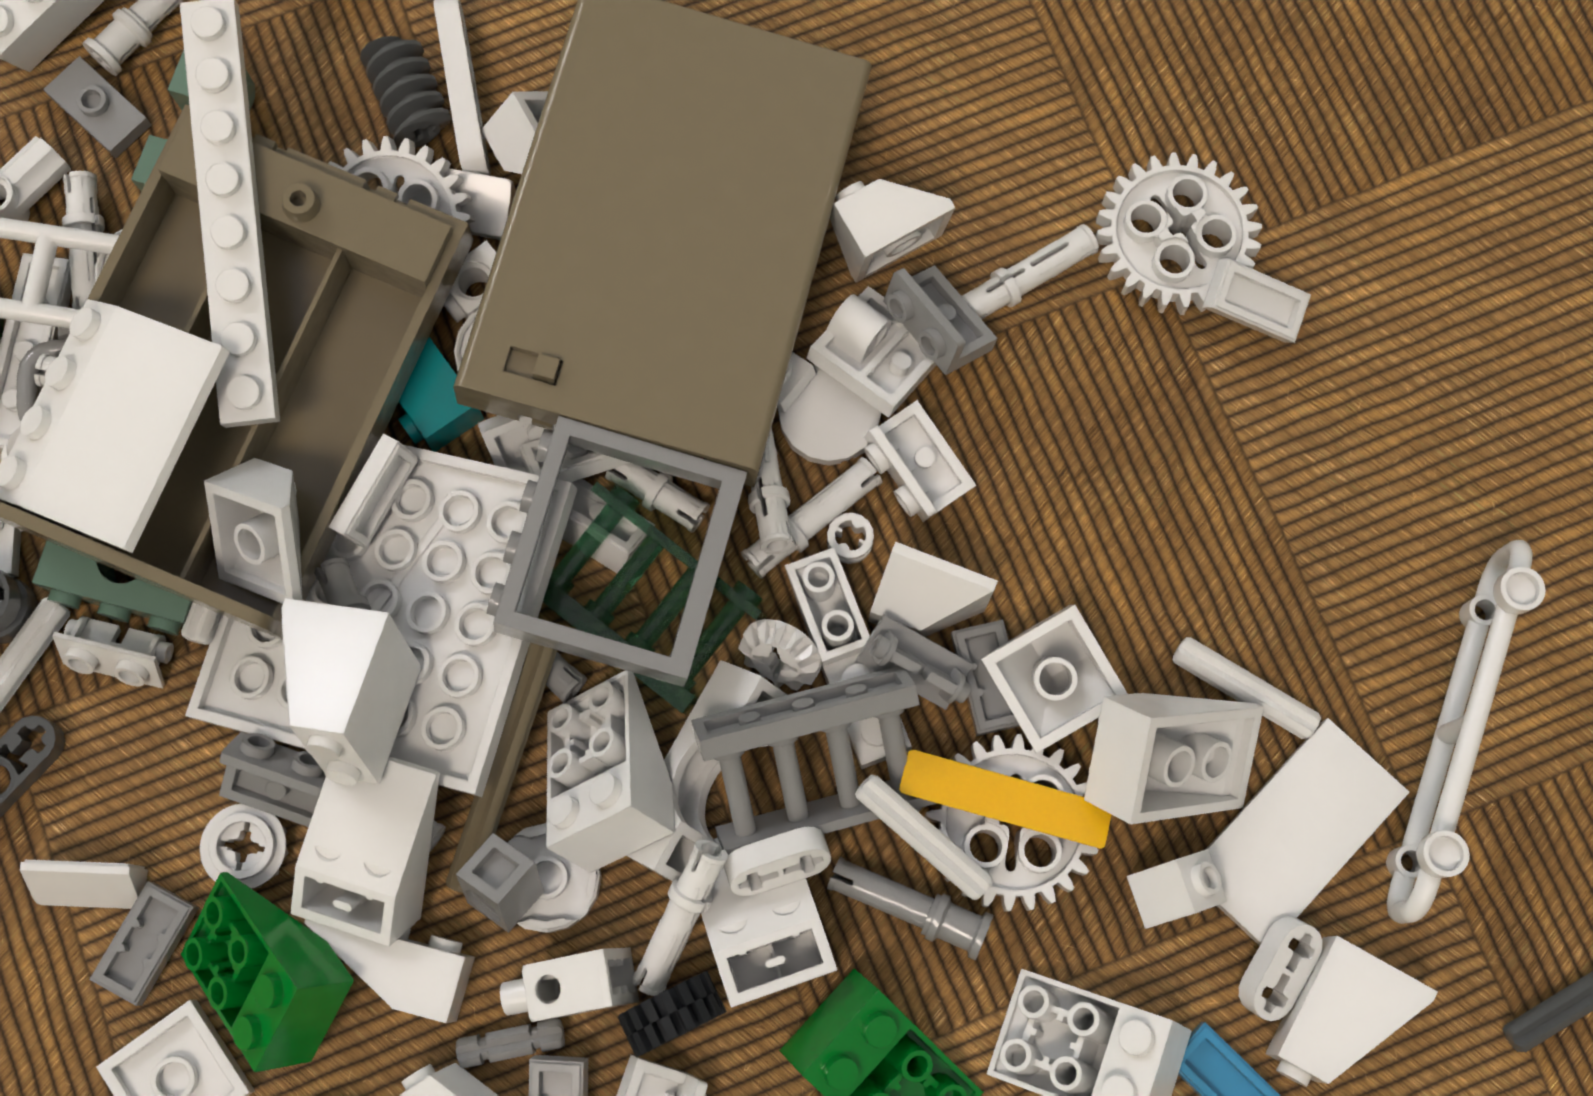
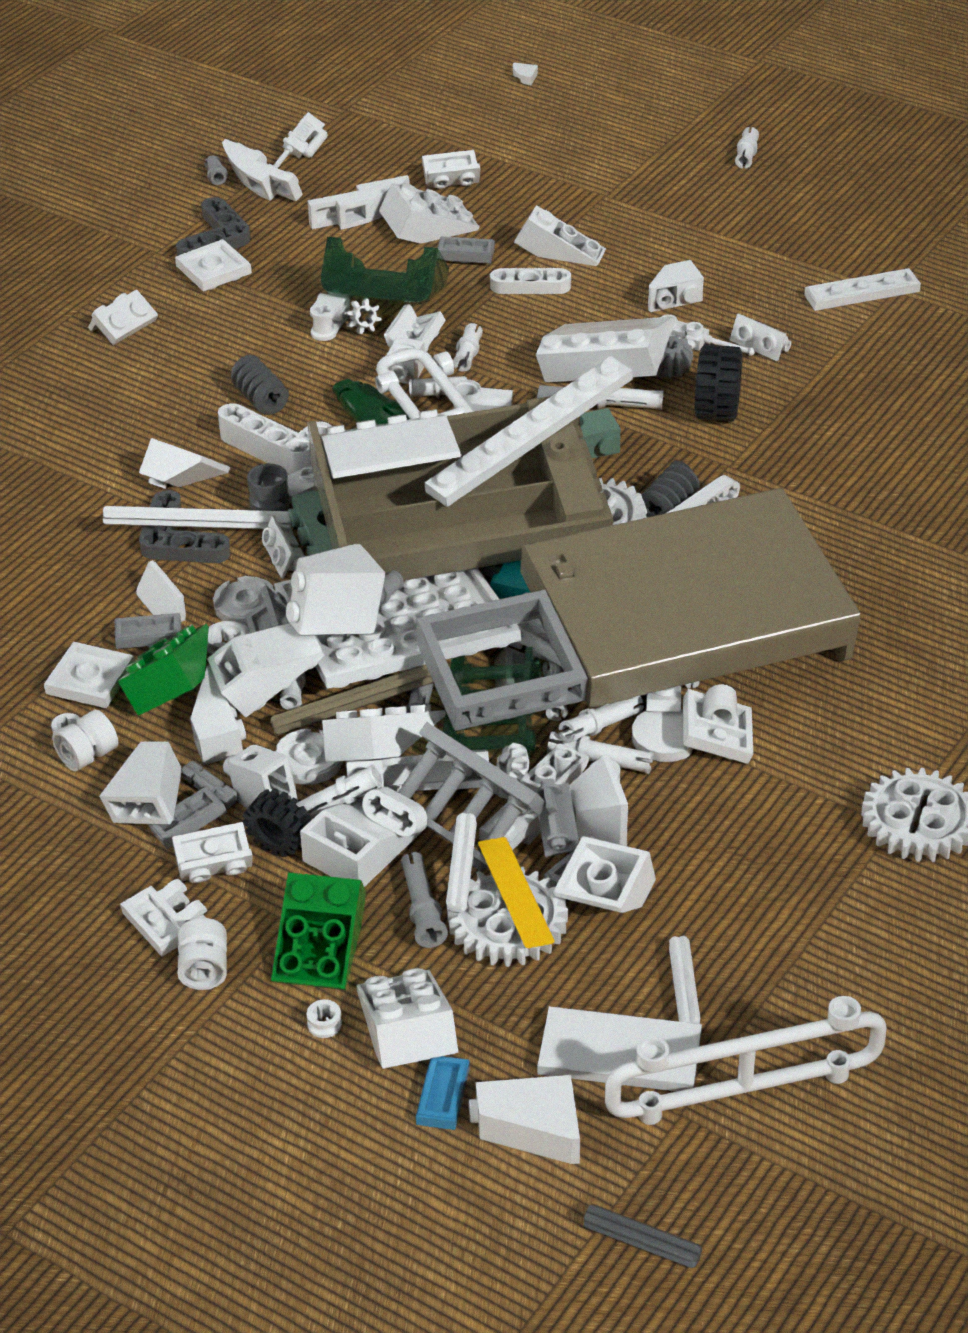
camera: 55 degrees right, 35 degrees down
(176, 768) = (239, 598): none -> white tile
(256, 529) = (390, 526): white slope -> none
(374, 491) = (446, 569): white tile -> none
(500, 882) = (289, 718): light grey brick -> none
(885, 223) = (785, 685): white slope -> none
(918, 462) = (670, 773): white bracket -> none
(938, 318) = (757, 732): light grey bracket -> none
(1010, 284) = (814, 763): white pin -> none
(1171, 756) = (609, 949): white slope -> none
(1177, 889) = (533, 995): white brick -> none
(1256, 300) = (915, 862): white tile -> none
(1280, 968) = (529, 1064): white beam -> none

